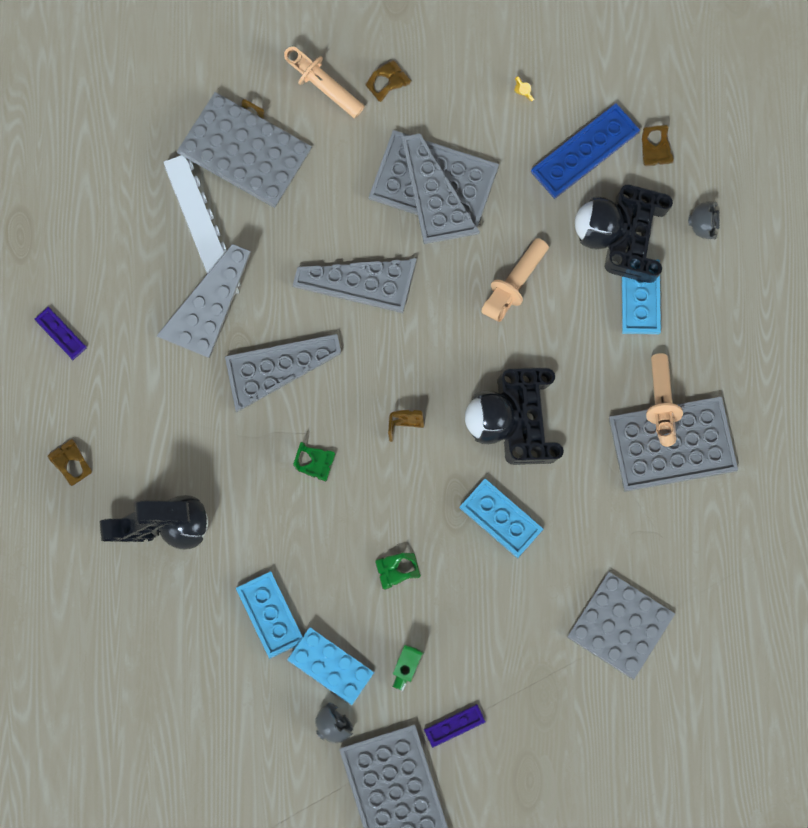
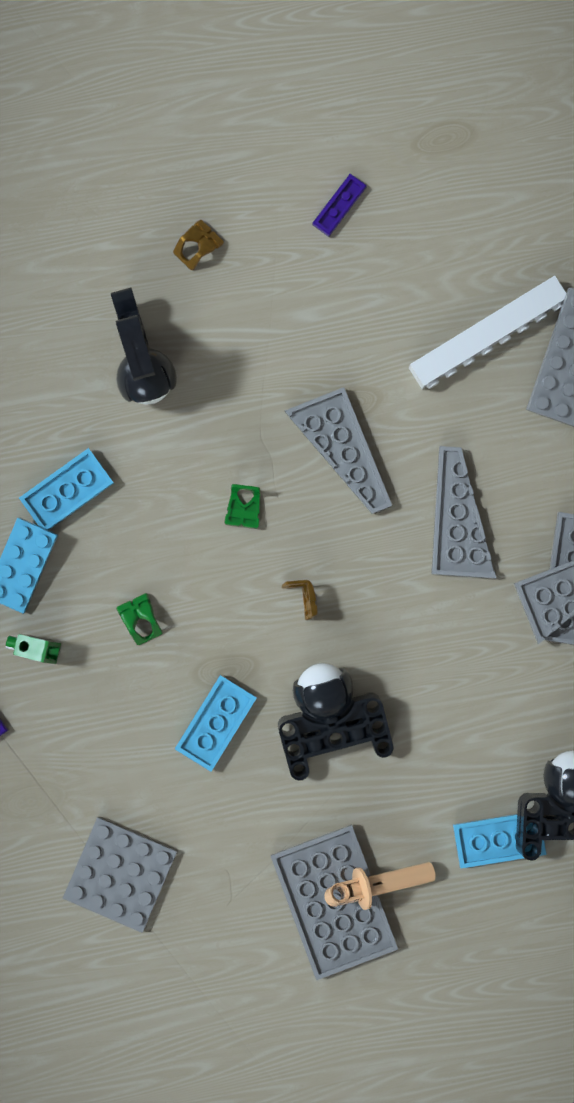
camera: 80 degrees right, 10 degrees up
(203, 313) = (388, 354): light grey wing -> none
(506, 292) = (474, 687): light nougat piece -> none

